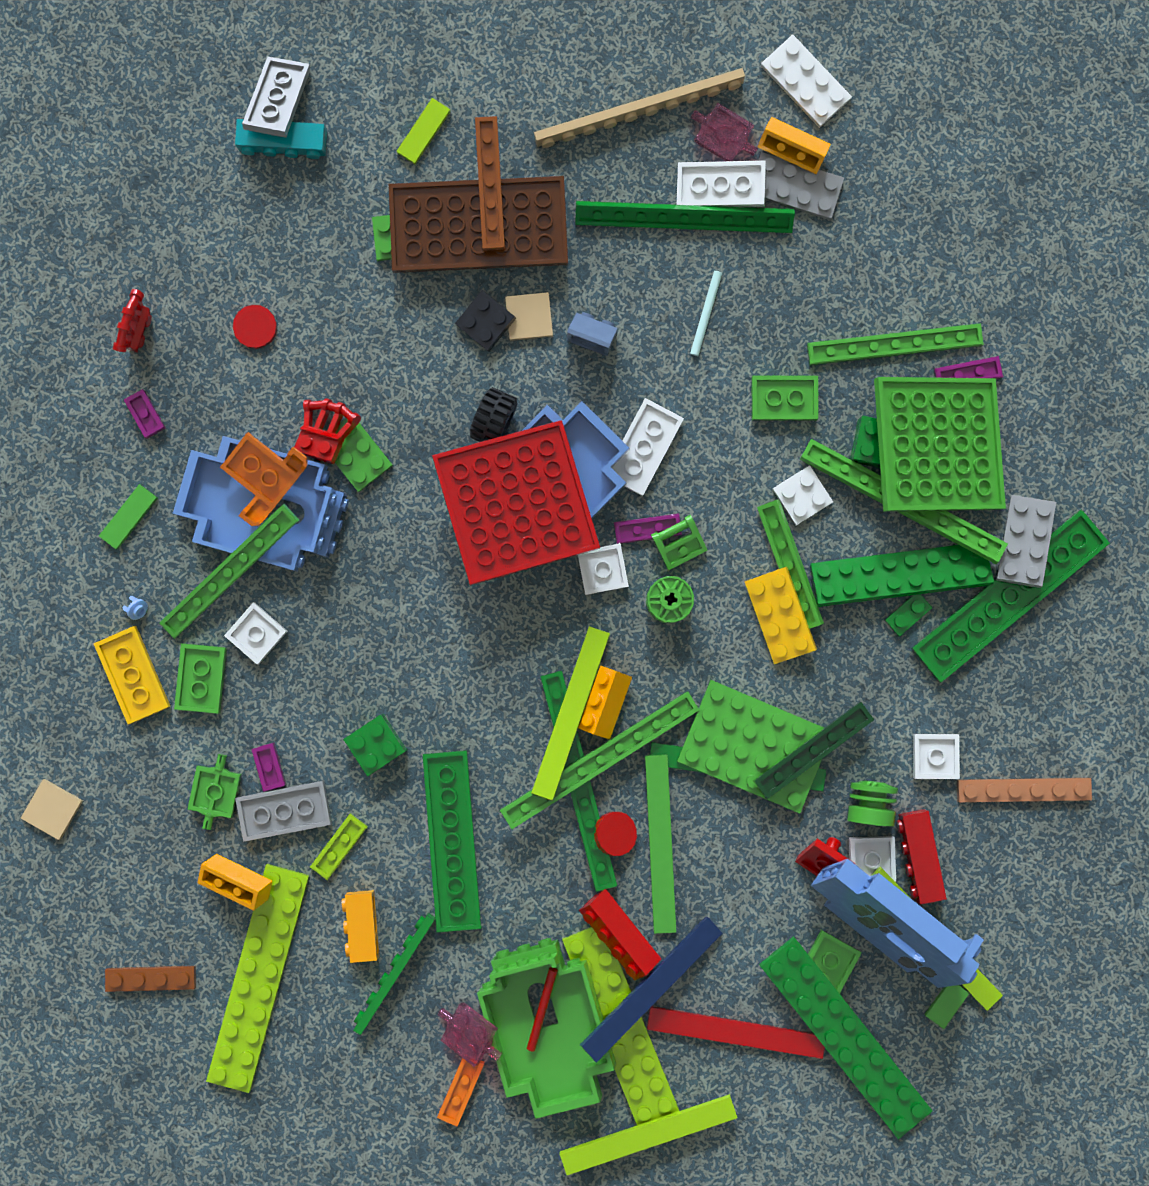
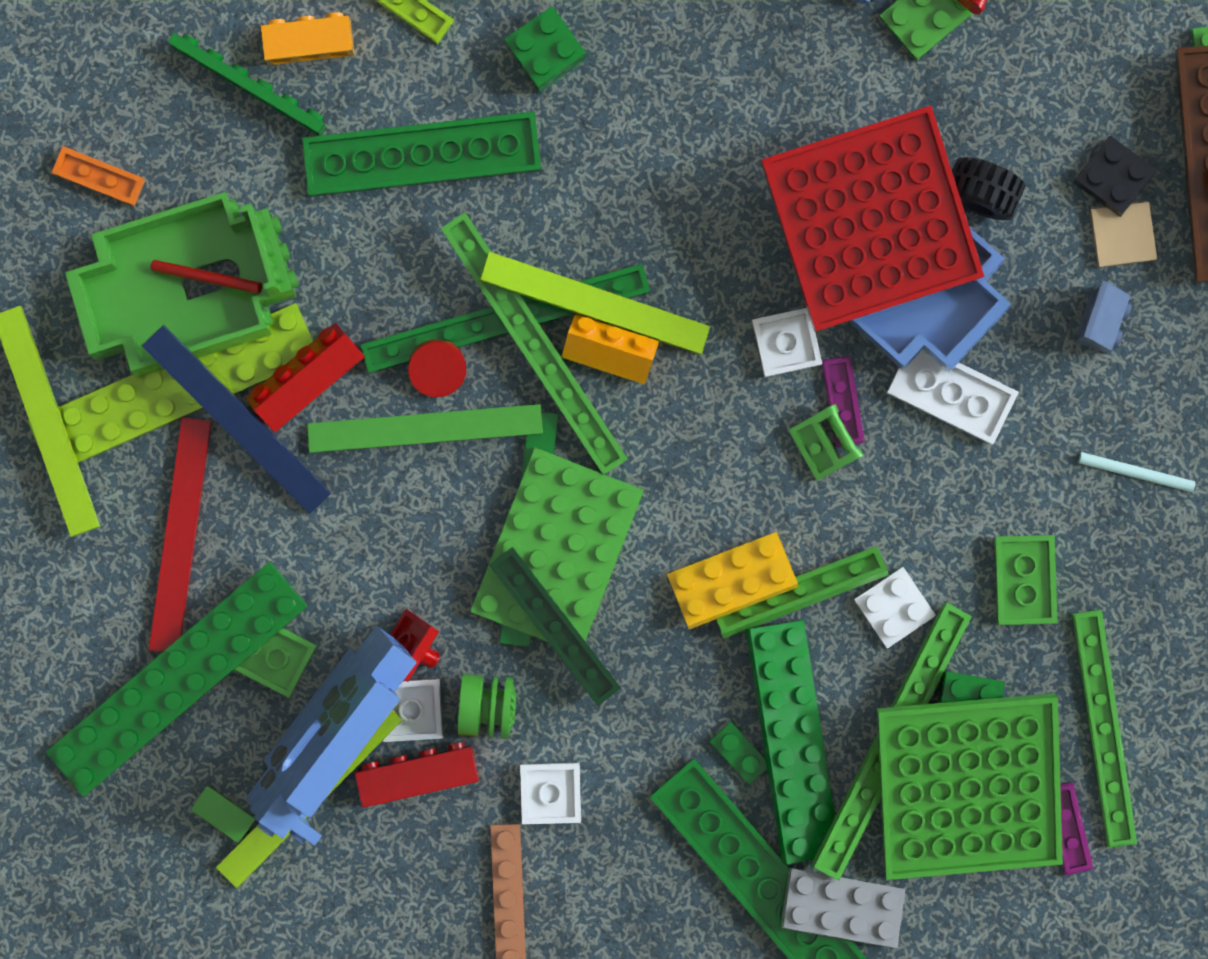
camera: 90 degrees right, 0 degrees up
(469, 1034) = (171, 183): clear pink plate -> none
(663, 588) = (734, 439): bright green wheel -> none

